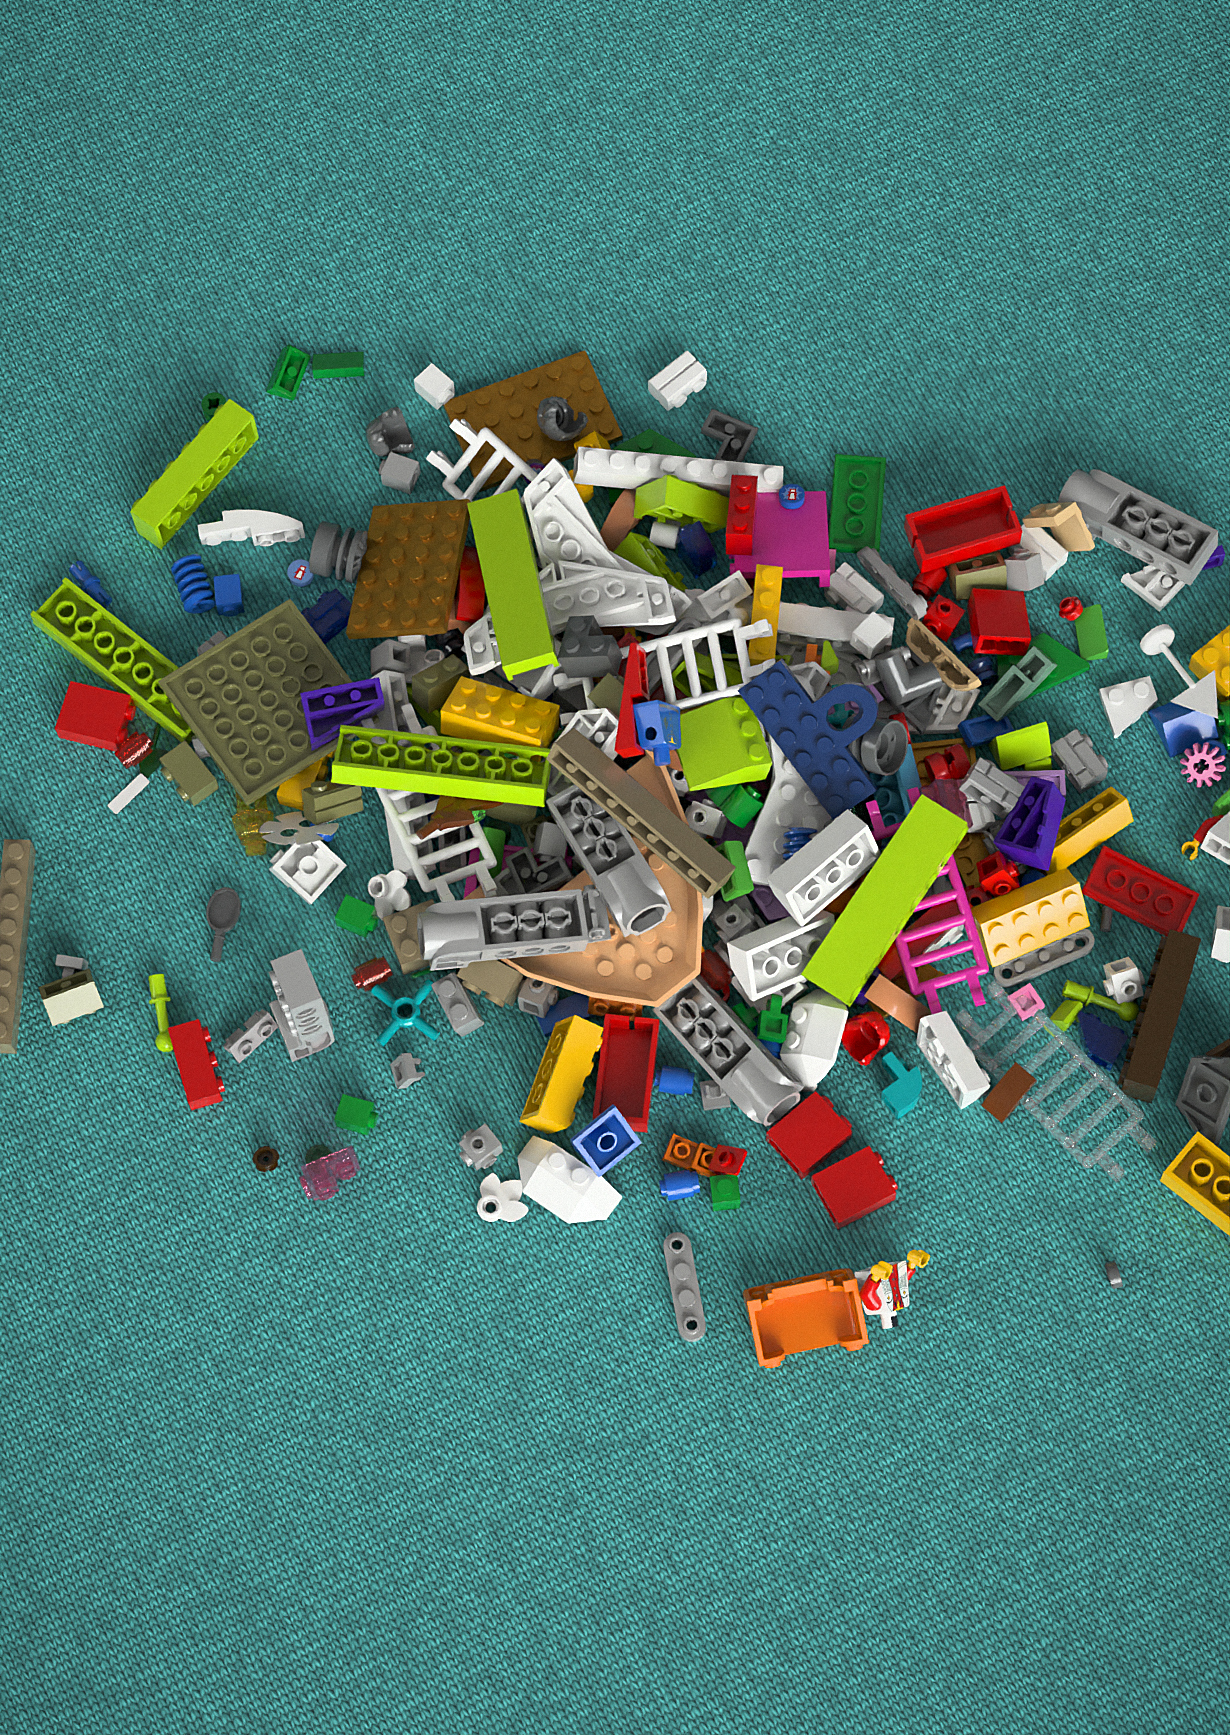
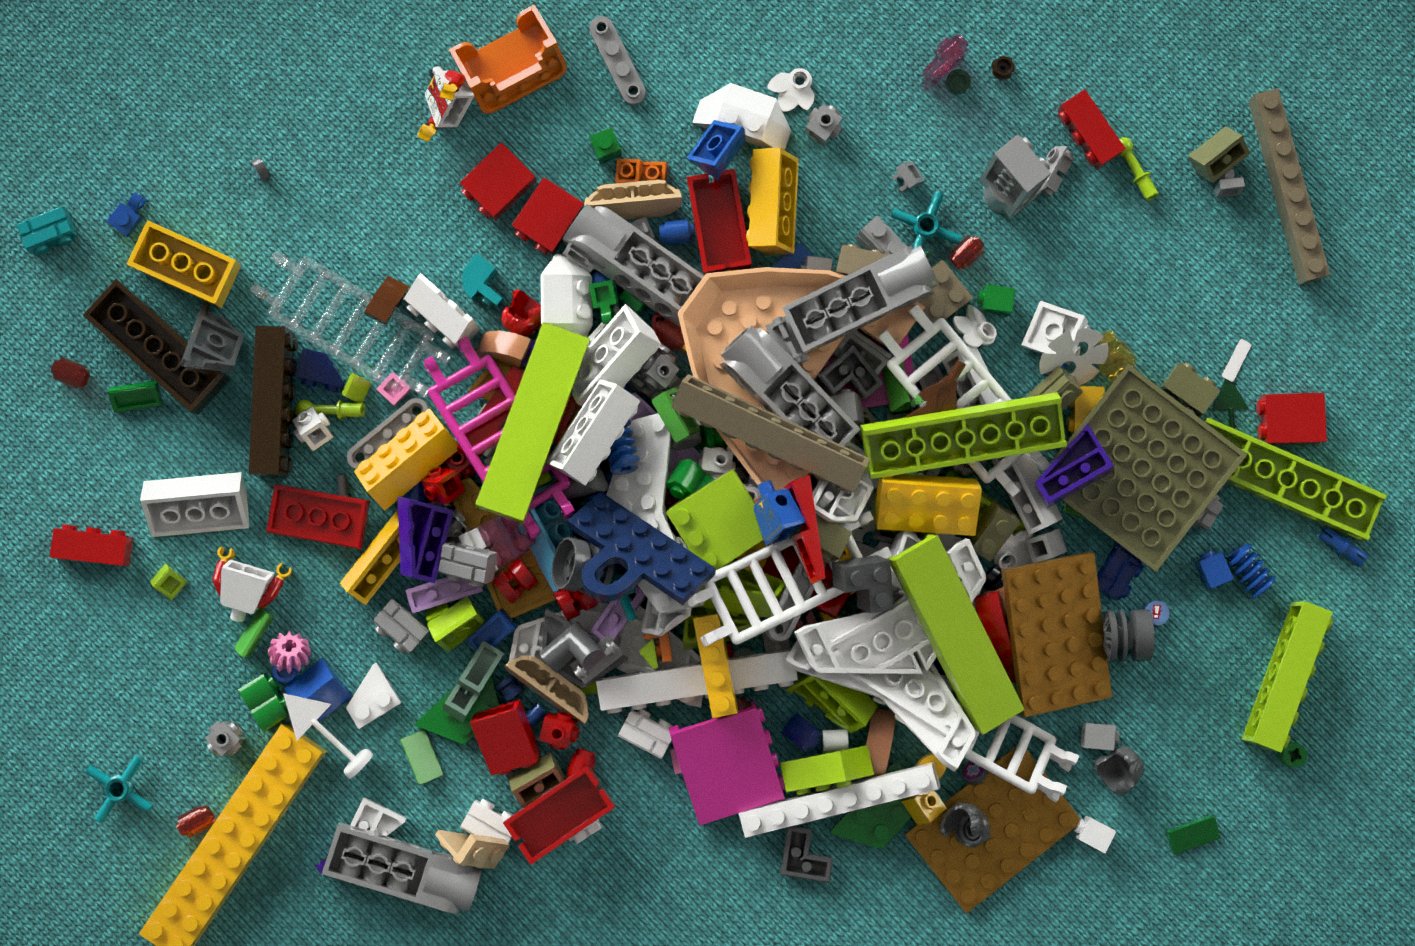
camera: 160 degrees right, 15 degrees up
(134, 749) = (1246, 397): clear red brick -> none
(222, 915) = (1114, 269): dark grey piece -> none
(260, 525) = (1208, 645): white slope -> none
(288, 372) = (1237, 812): green slope -> none
(356, 1114) = (938, 124): green brick -> none
(677, 381) = (869, 904): white brick -> none
(679, 1185) = (645, 142): blue brick -> none
(710, 1126) = (637, 199): none -> tan brick
(724, 597) = (757, 678): white plate -> none
(727, 1160) = (609, 167): red bracket -> none
(741, 515) = (767, 768): red brick -> none
(791, 496) = (728, 807): blue tile -> none
(856, 503) = (668, 827): green tile -> none
(871, 635) = (614, 681): white brick -> none
(898, 589) = (620, 756): light grey plate -> none
(1024, 570) = (495, 794): light grey brick -> none
(1070, 608) = (445, 775): red plate -> none

